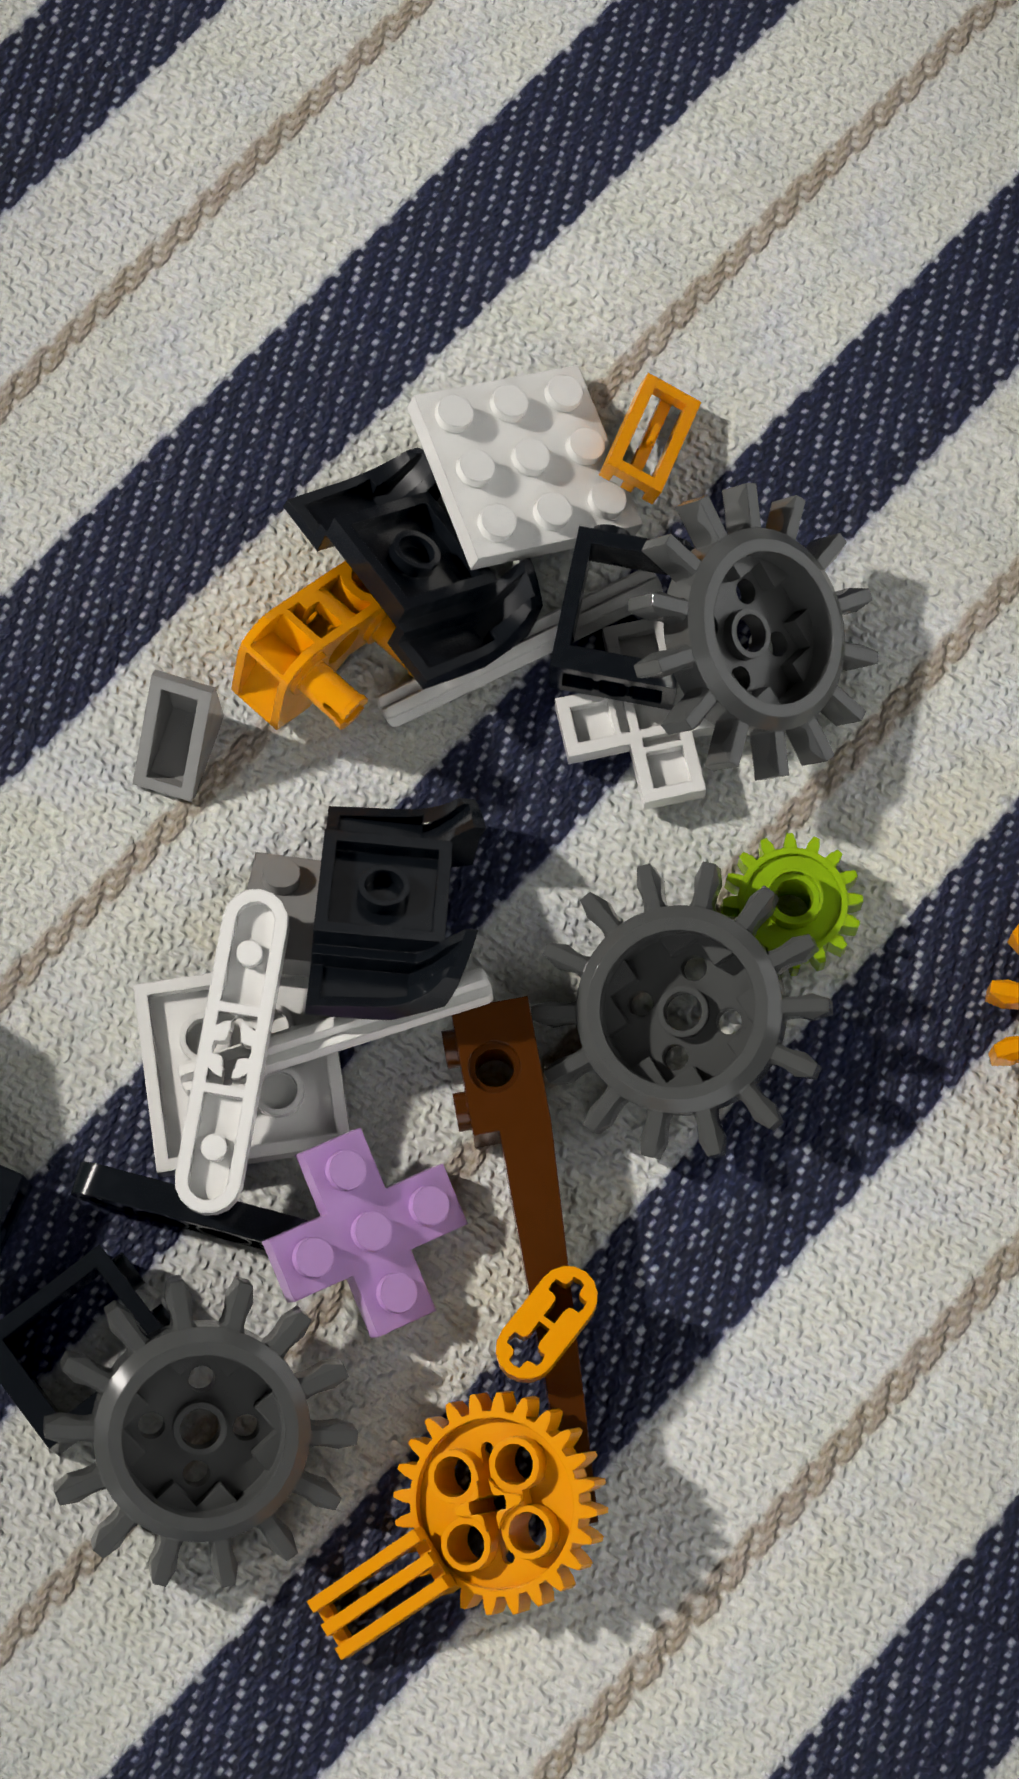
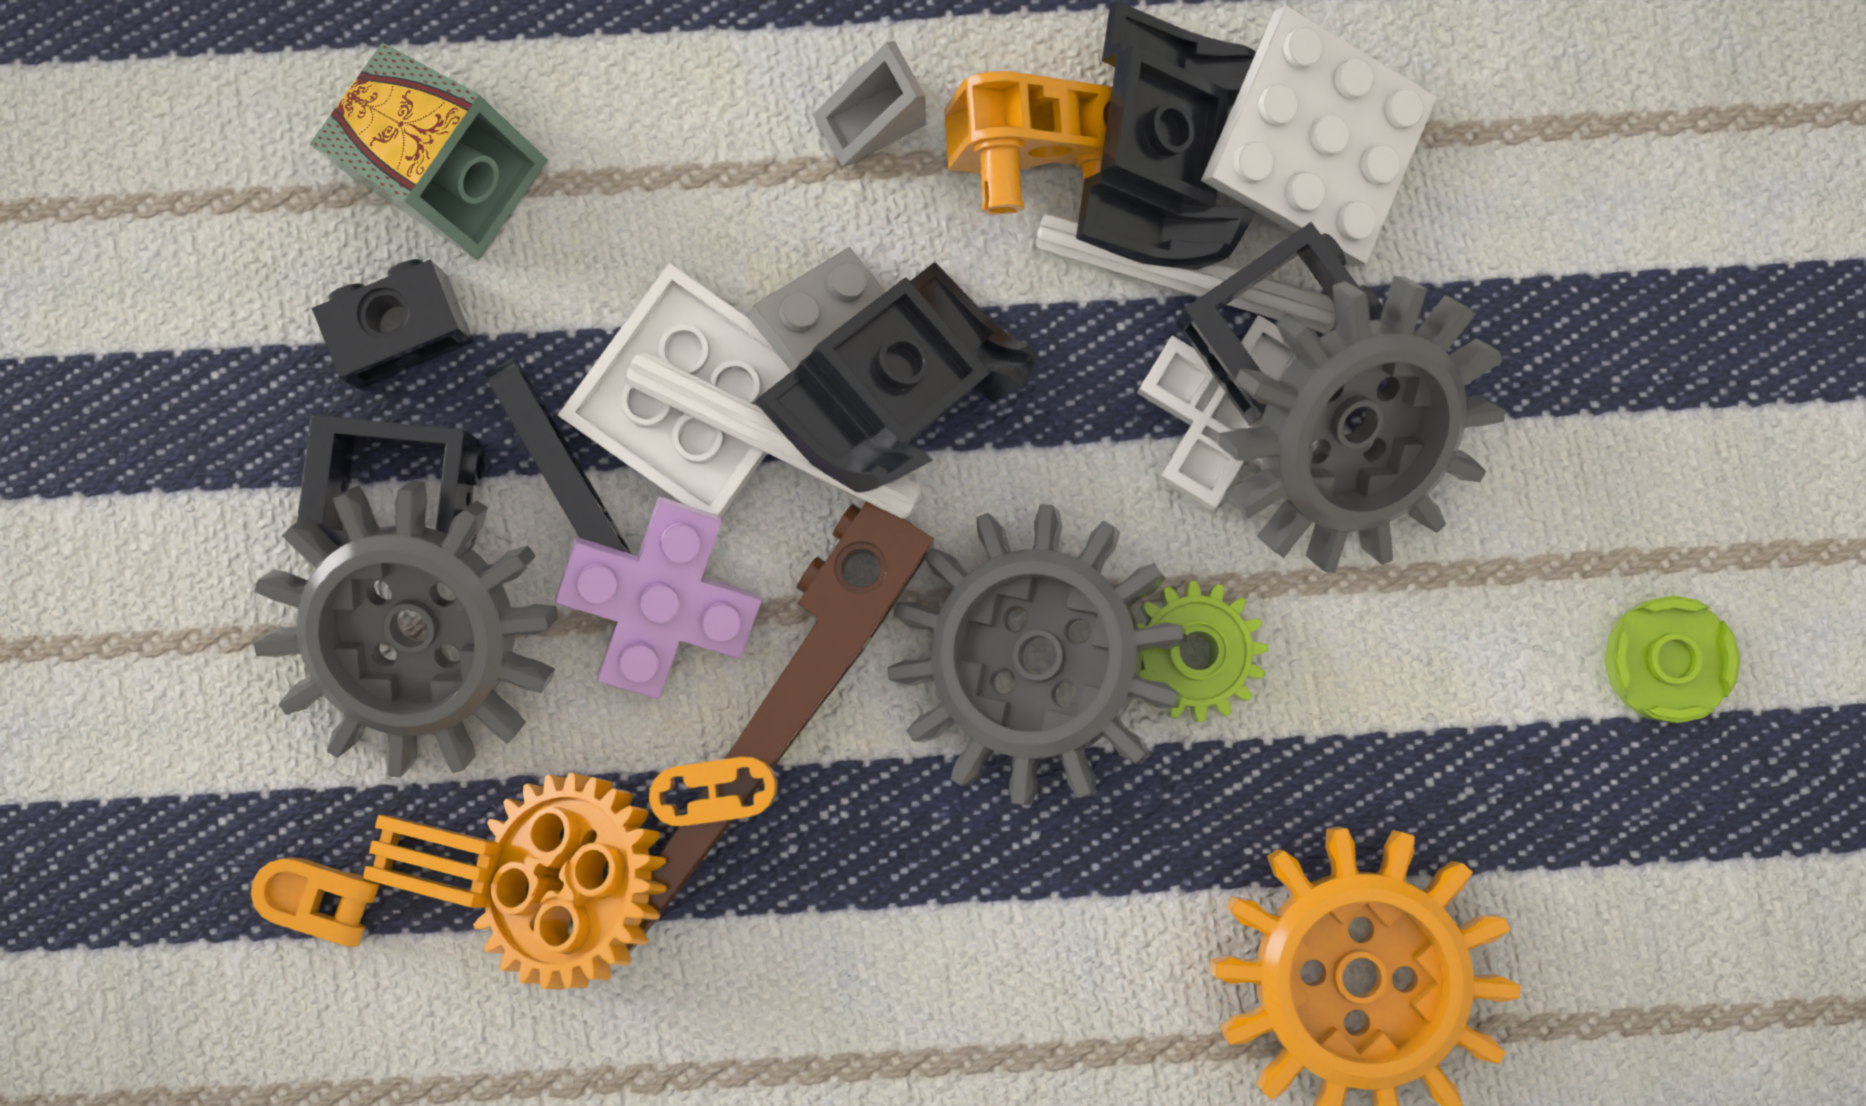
camera: 45 degrees right, 10 degrees up
(218, 1115) = (625, 419): white piece -> none
(295, 1724) = (292, 892): none -> light orange plate
(632, 473) = (1394, 219): light orange tile -> none

